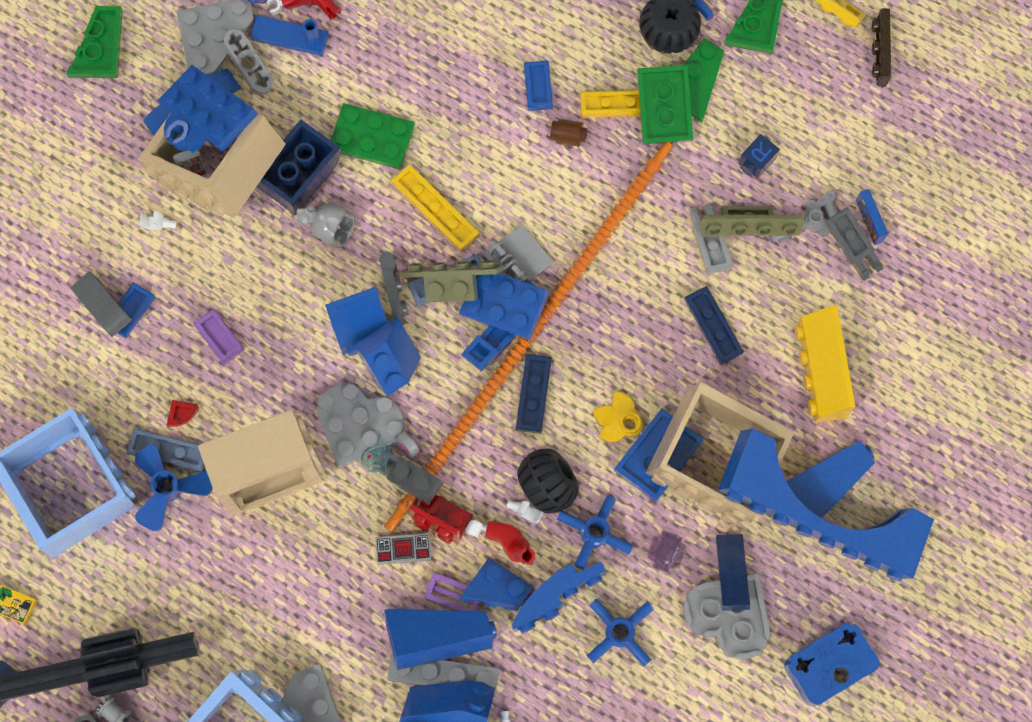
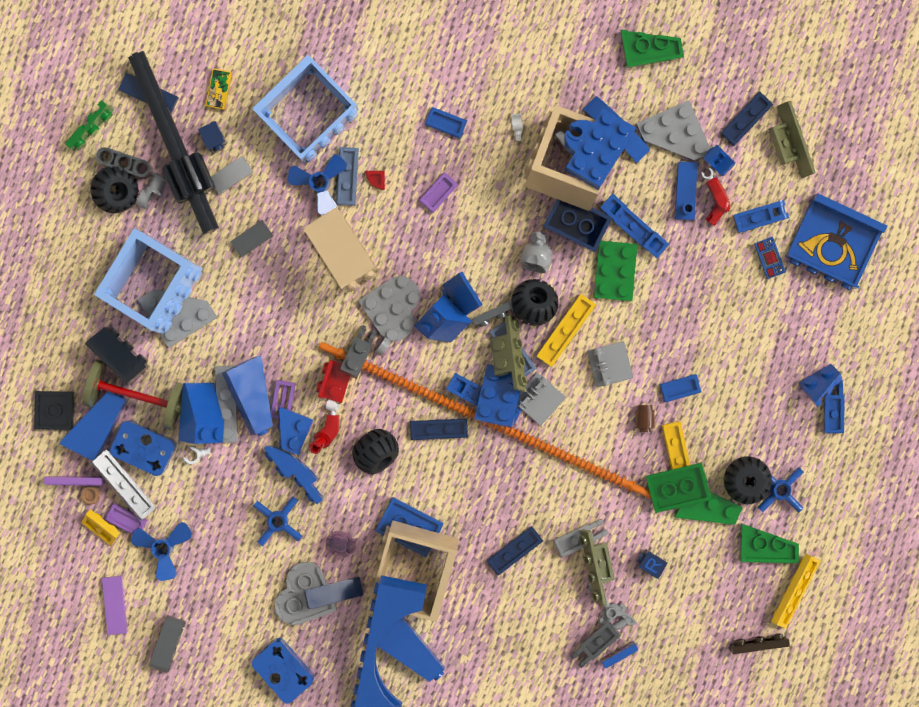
camera: 80 degrees right, 15 degrees up
(68, 620) = (213, 137): none -> dark blue brick
(100, 303) = (444, 102): dark grey beam -> none
(127, 604) = (231, 174): none -> light grey slope
(222, 595) = (252, 238): none -> dark grey tile
(244, 44) = (657, 172): light grey beam -> none
(321, 103) = (634, 226): none -> blue slope
(375, 458) = (367, 326): clear light blue tile -> none
(390, 238) = (530, 292): none -> black wheel
(403, 549) = (308, 358): tile -> none
(490, 163) = (610, 364): none -> light grey hinge
(525, 511) = (351, 439): white piece -> none
(590, 541) = (343, 499): blue bar -> none
(615, 416) = (431, 490): yellow plate -> none
(825, 365) = (496, 636): yellow slope -> none

